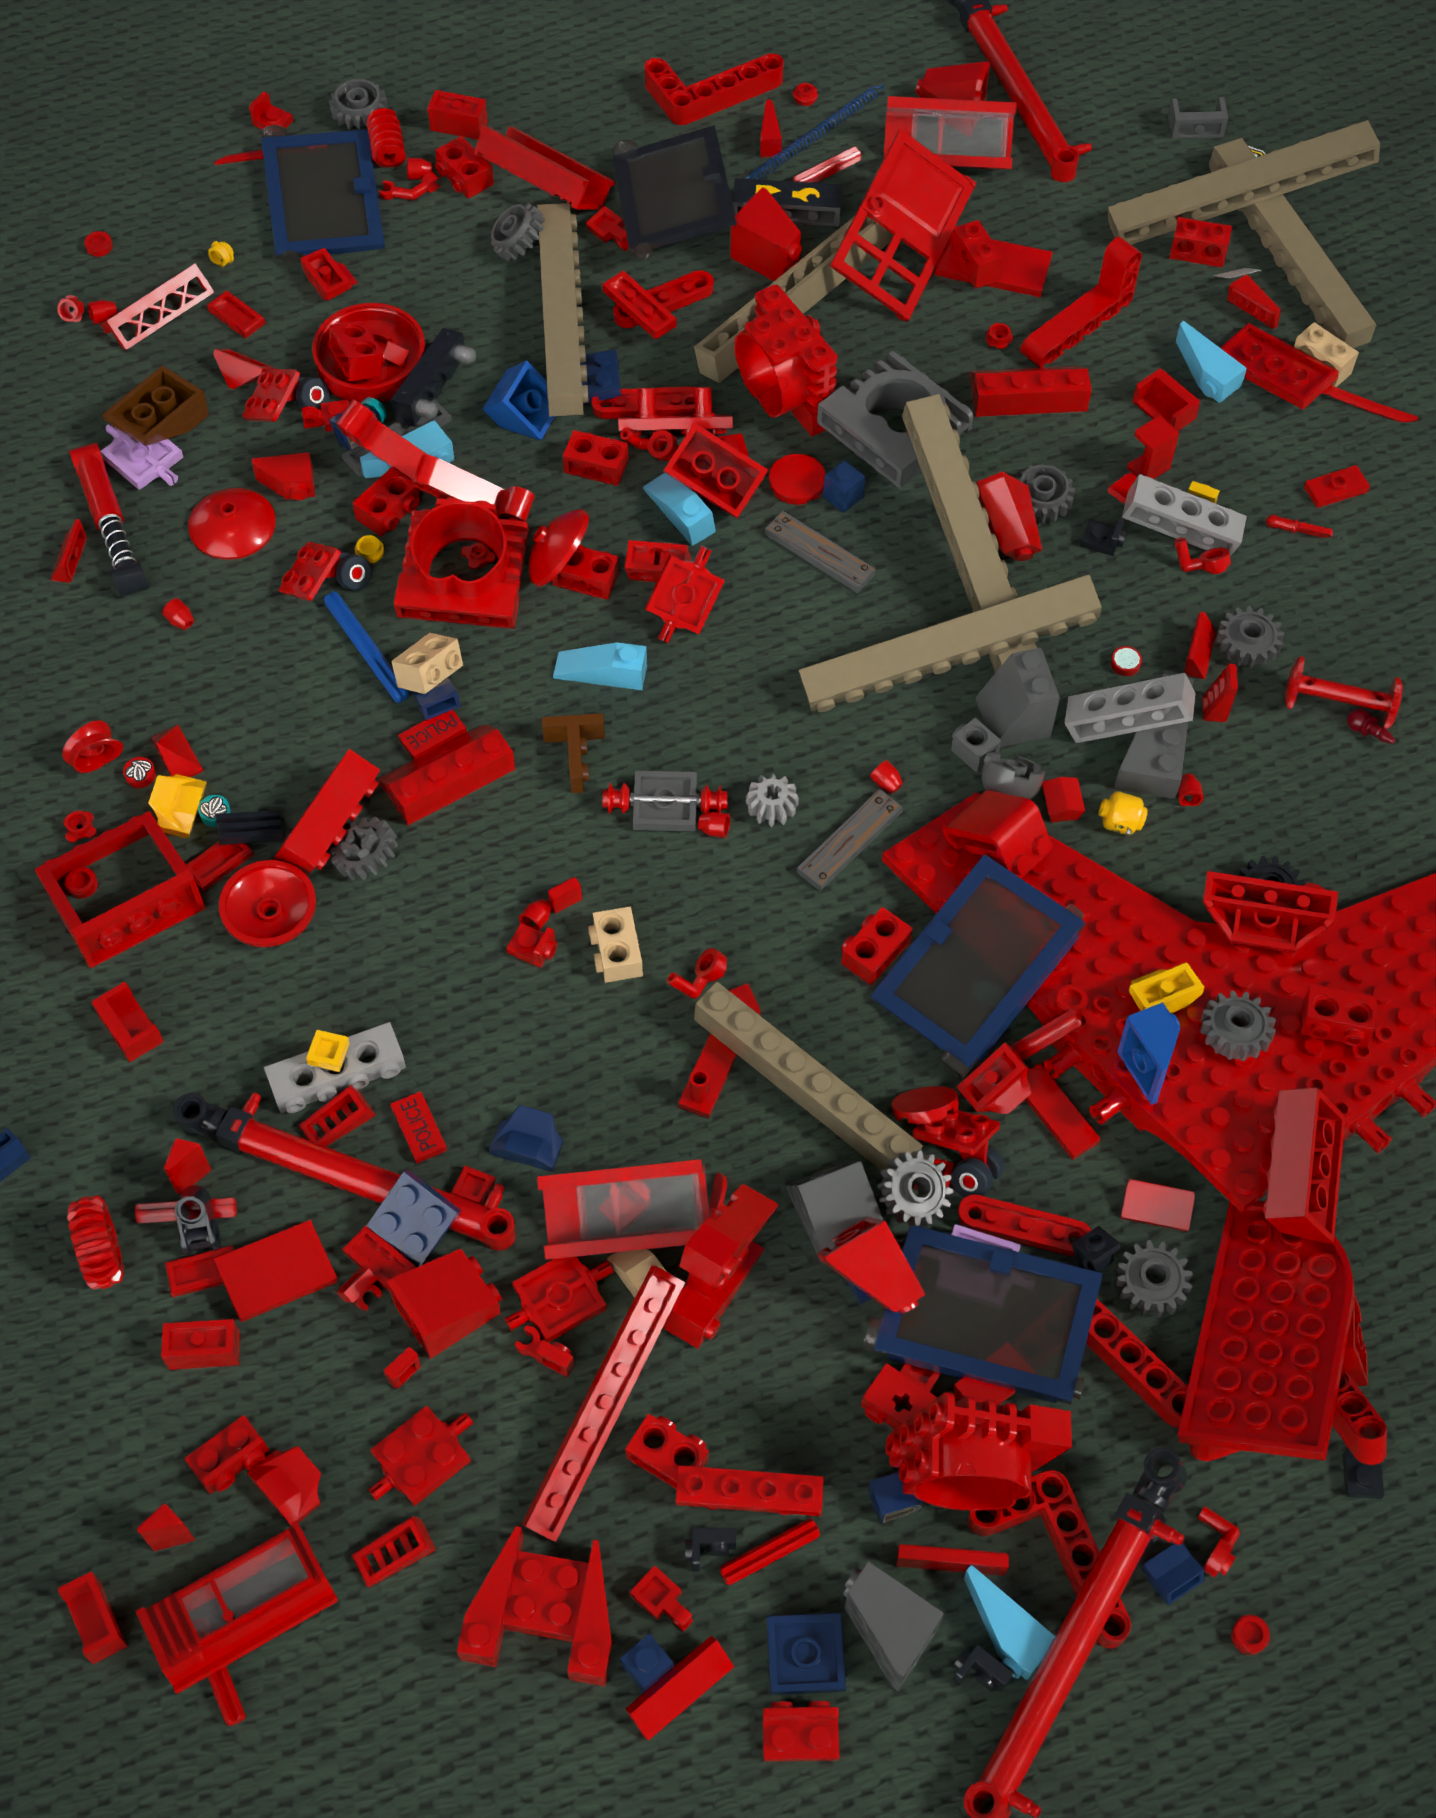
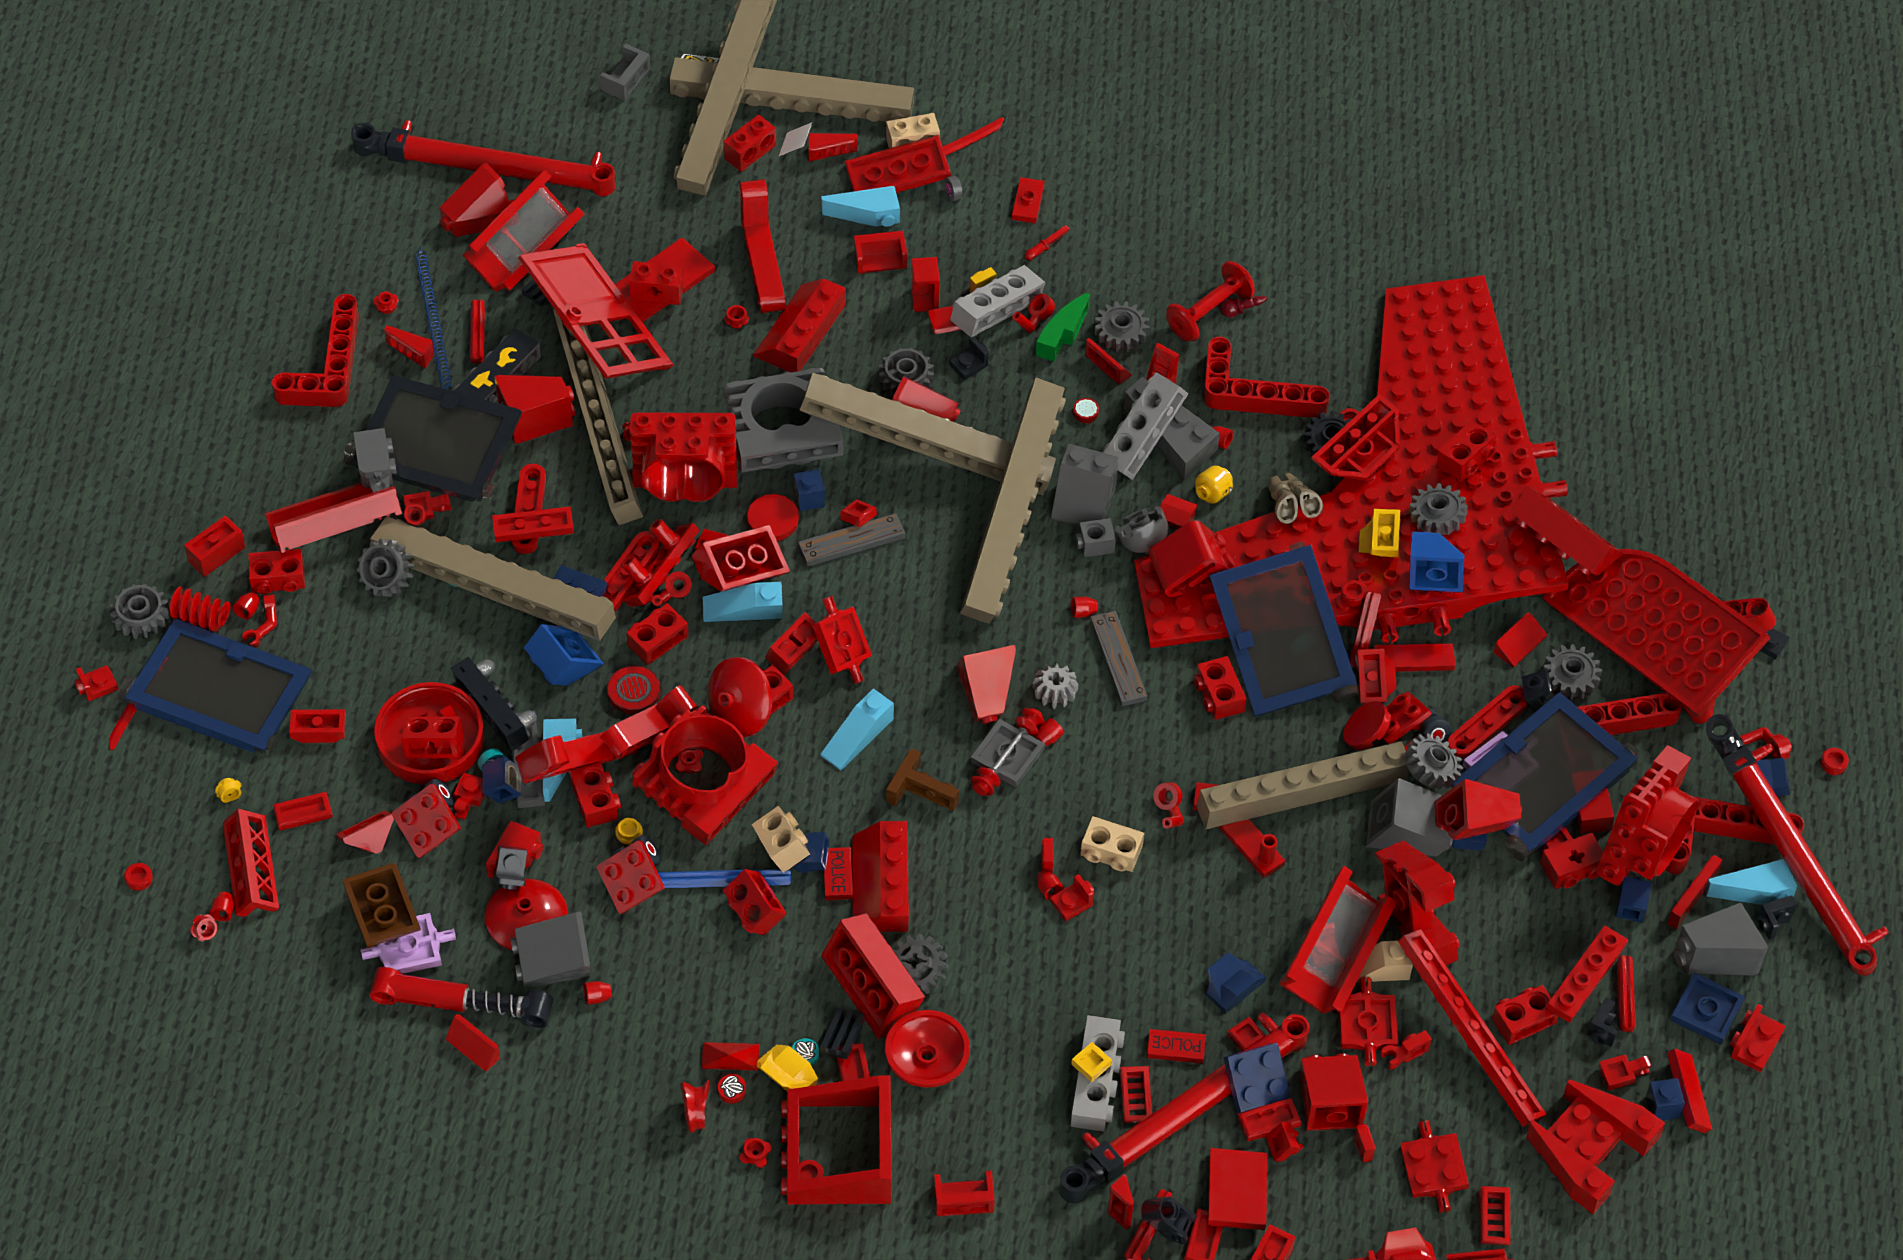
camera: 60 degrees left, 5 degrees down
(191, 556) = (551, 951): none -> dark grey slope
(257, 477) = (510, 867): none -> bracket
(347, 680) = (757, 900): none -> red brick
(529, 471) = (633, 689): none -> tile
(584, 220) = (415, 509): none -> red hose
(615, 160) = (374, 460): none -> dark grey hinge
(726, 737) = (987, 681): none -> slope
(851, 539) = (858, 513): none -> red tile
(1162, 886) = (1286, 496): none -> dark tan piece
(1206, 589) = (1062, 328): none -> green slope
(1269, 791) = (1257, 395): none -> red beam
(1292, 419) = (953, 188): none -> dark grey tile

